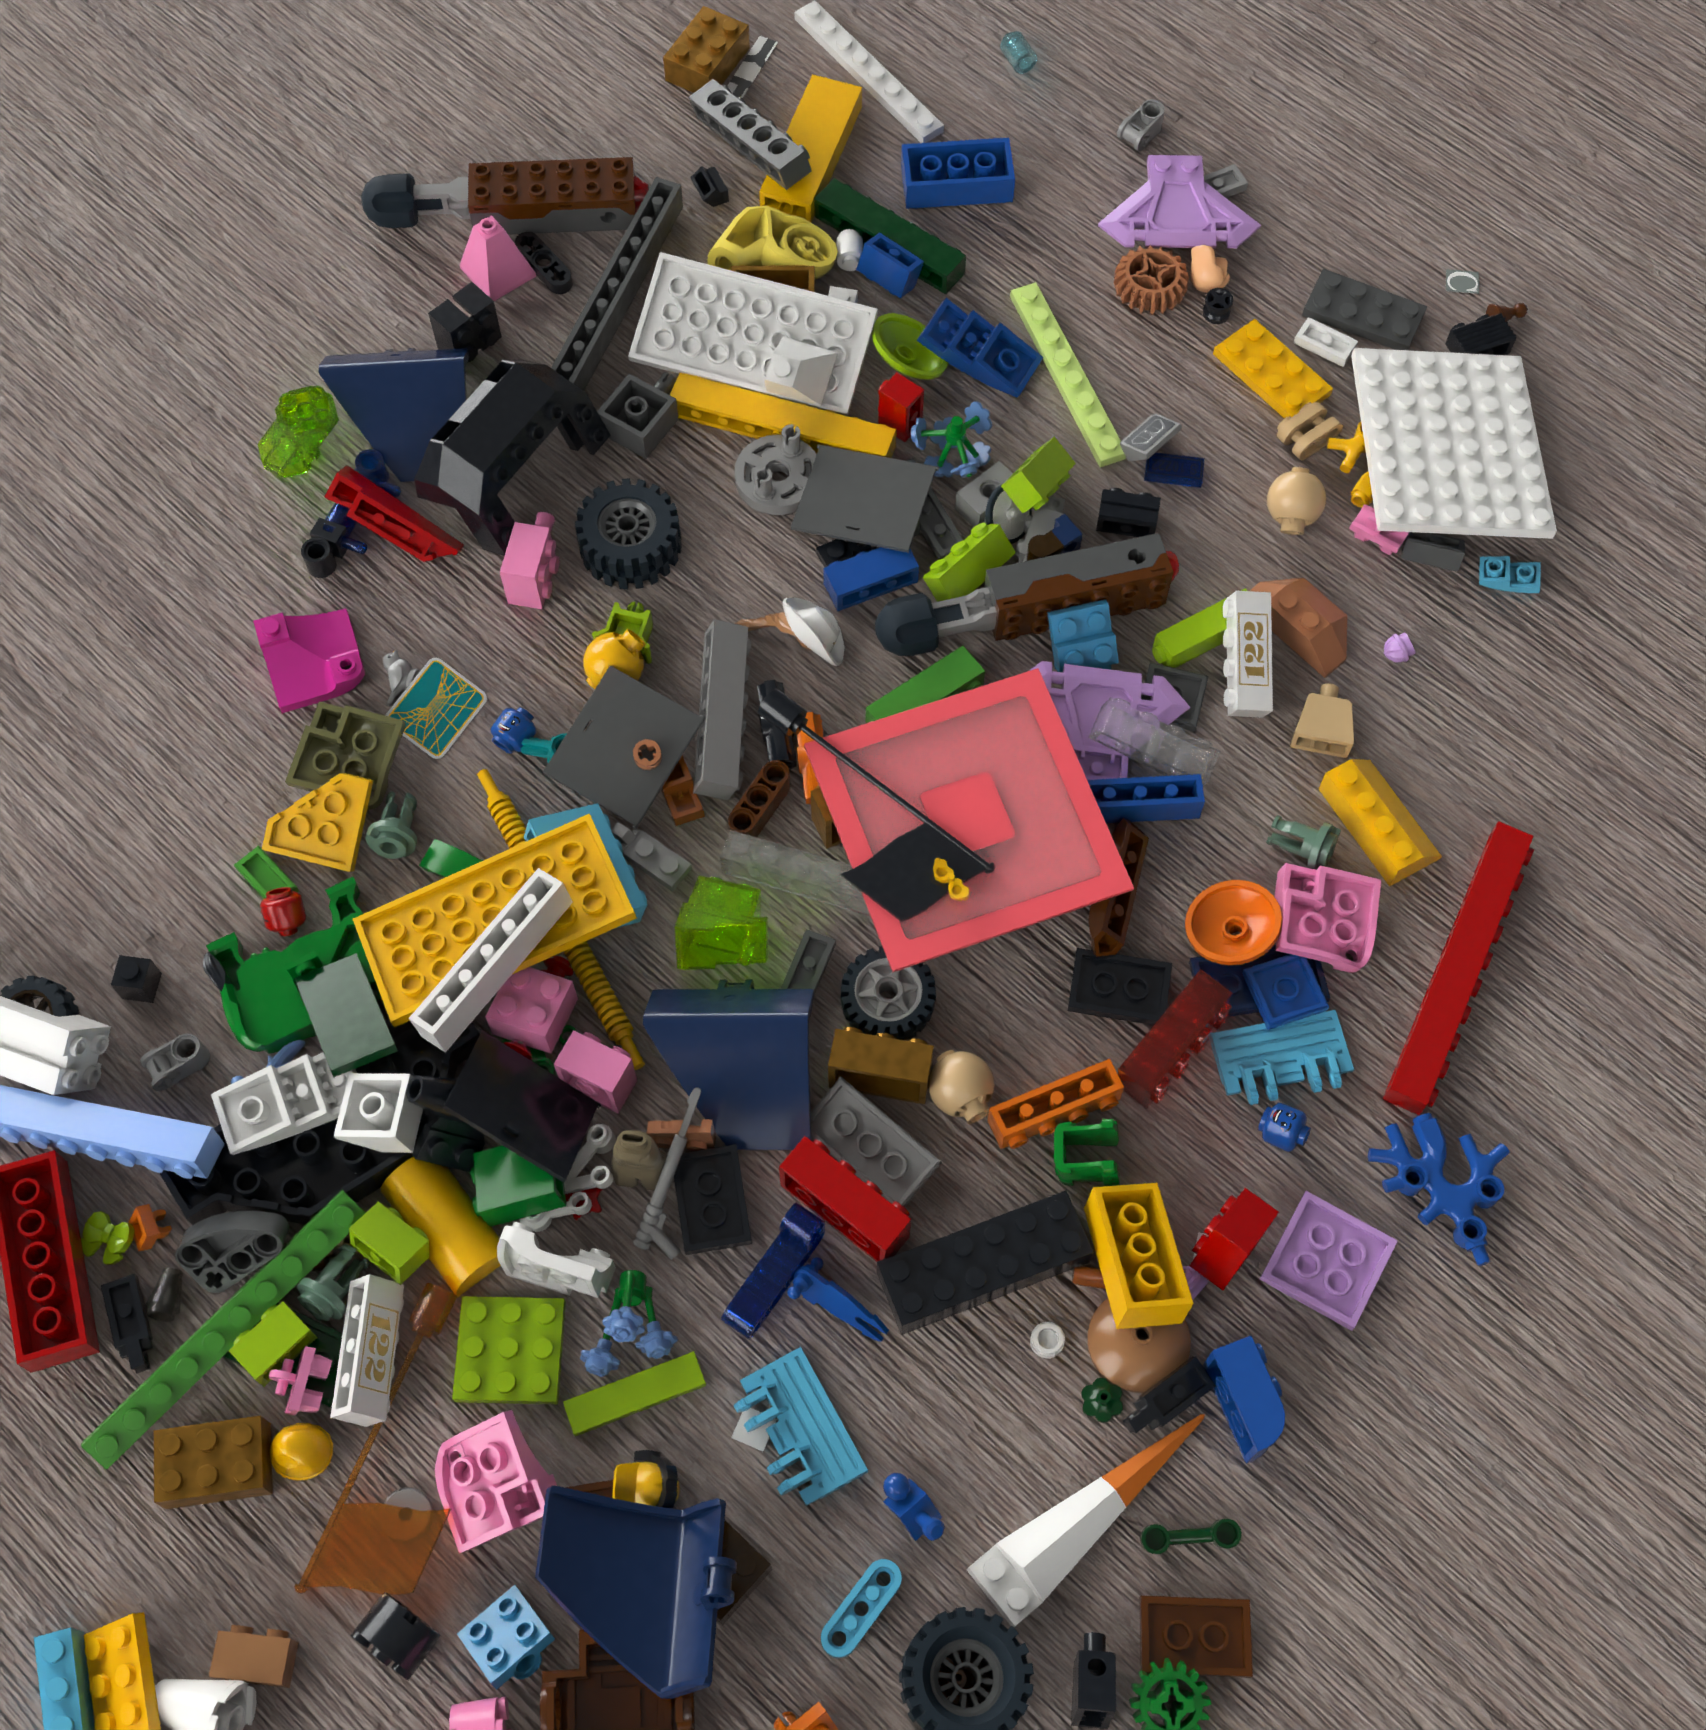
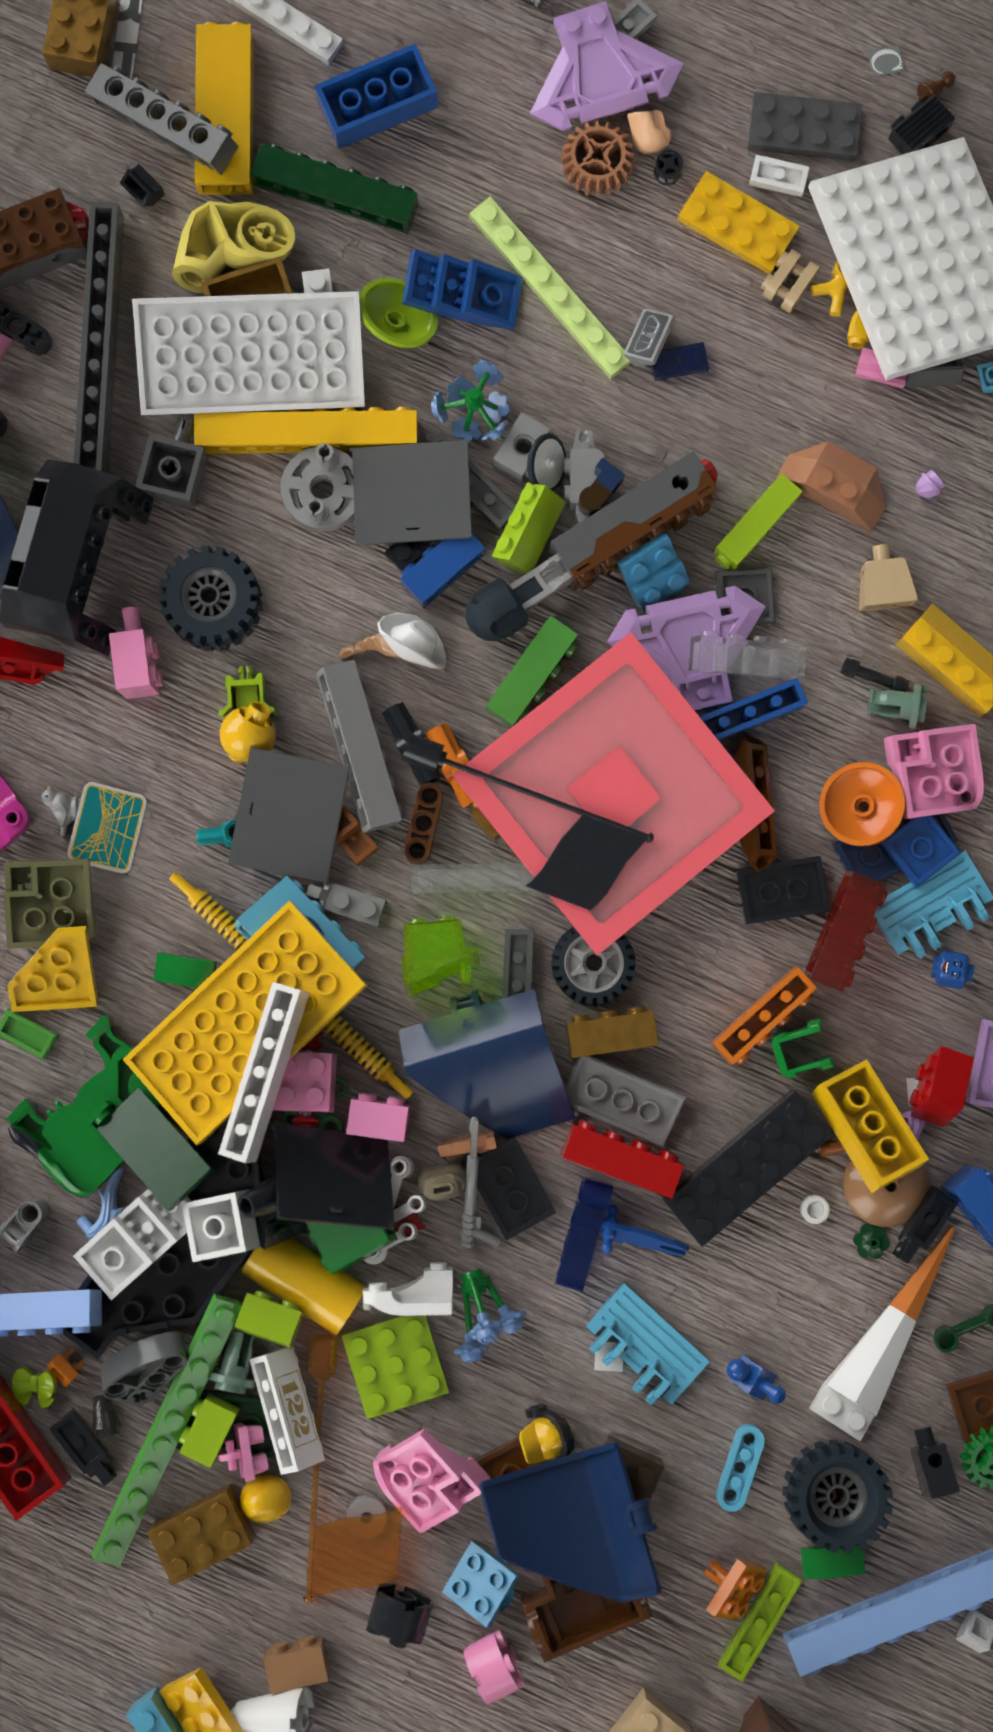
camera: 20 degrees left, 20 degrees up
(283, 911) = (56, 1063): red head -> none
(391, 835) = (121, 964): sand green piece -> none
(512, 728) = (183, 826): blue head -> none
(634, 1393) = (507, 1363): lime tile -> none
(650, 745) = (314, 828): nougat bush -> none
(800, 371) = (309, 378): white slope -> none
(849, 249) = (302, 217): white brick -> none
(889, 265) = (348, 226): blue brick -> none
(900, 405) = (411, 383): red brick -> none
(946, 875) = (615, 858): yellow piece -> none
(961, 1085) = (683, 1027): tan brick -> none
(1039, 476) = (563, 418): lime brick -> none
(1128, 513) = (652, 424): black brick -> none
(1248, 654) = (803, 541): white brick -> none
(1265, 794) = (853, 668): none -> black bar
(1296, 500) = (801, 365): tan brick -> none

